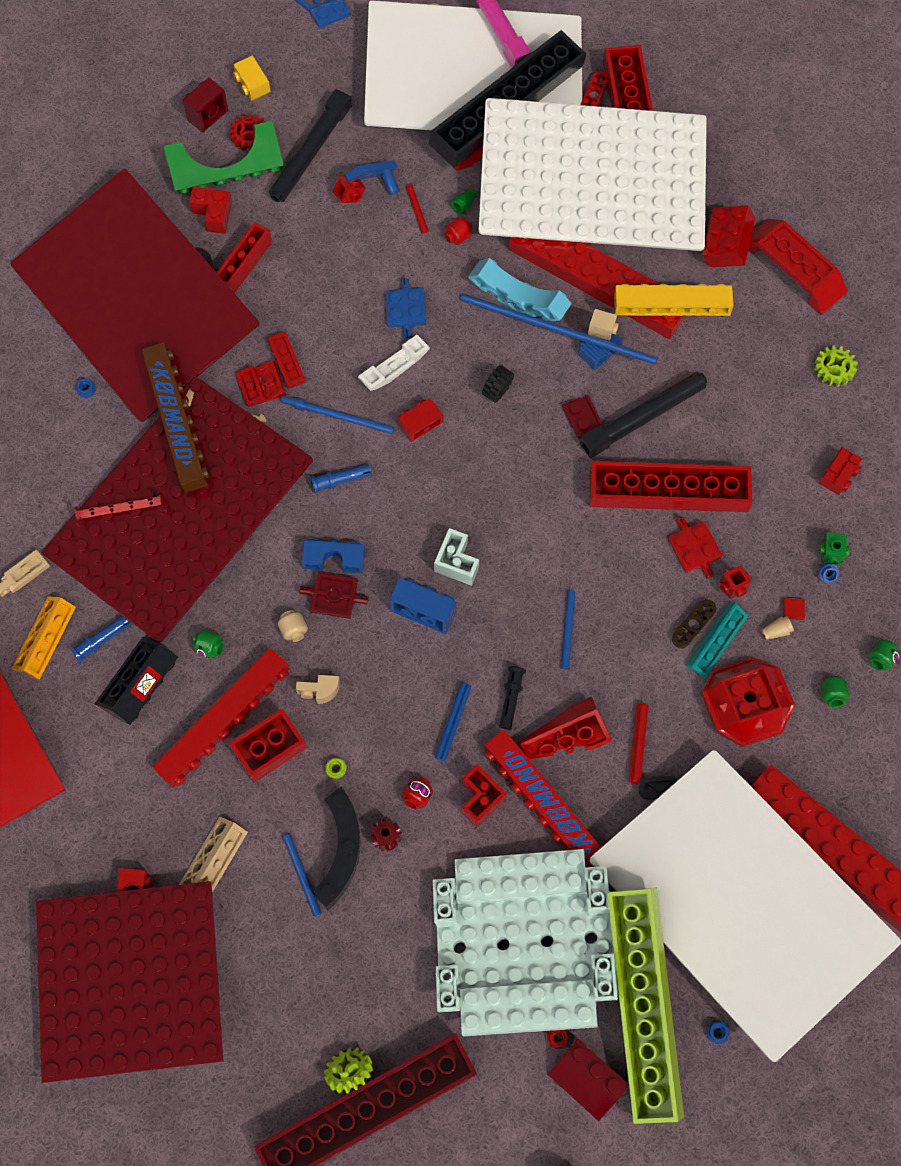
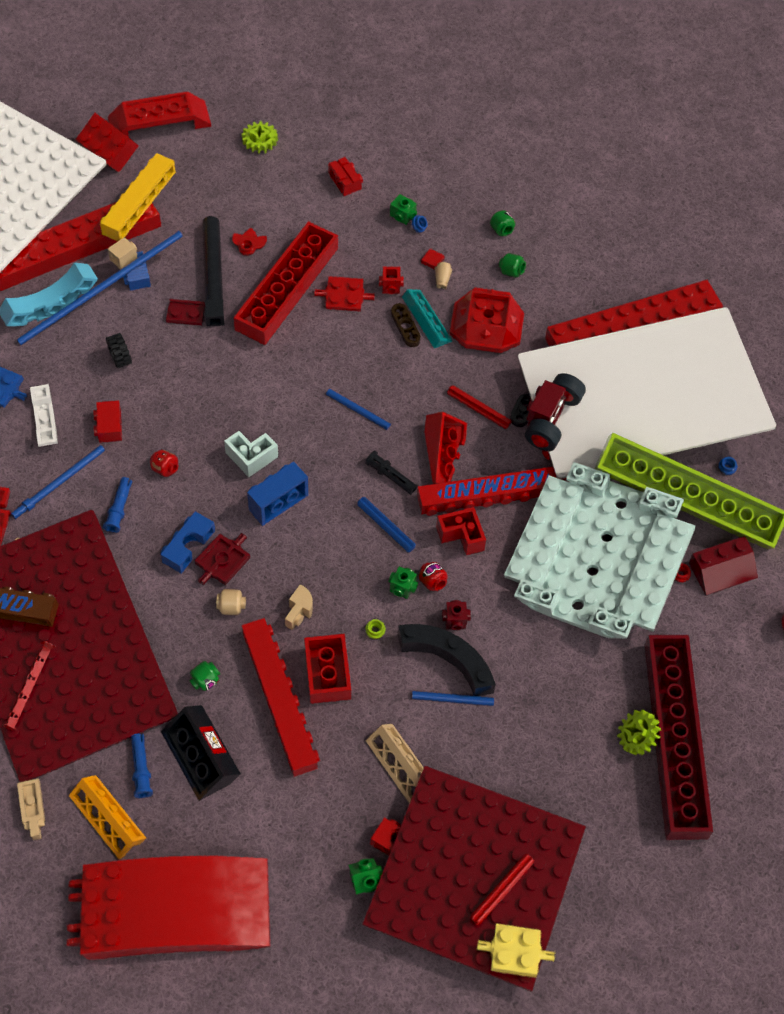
camera: 65 degrees left, 10 degrees down
(66, 1050) = (516, 950): none -> light yellow plate
(85, 880) = (365, 875): none -> green brick
(119, 1010) = (502, 889): none -> red axle
(394, 776) = (403, 582): none -> green brick
(404, 490) = (164, 463): none -> red head
(653, 810) = (548, 407): none -> brick
(704, 426) = (250, 240): none -> red plate

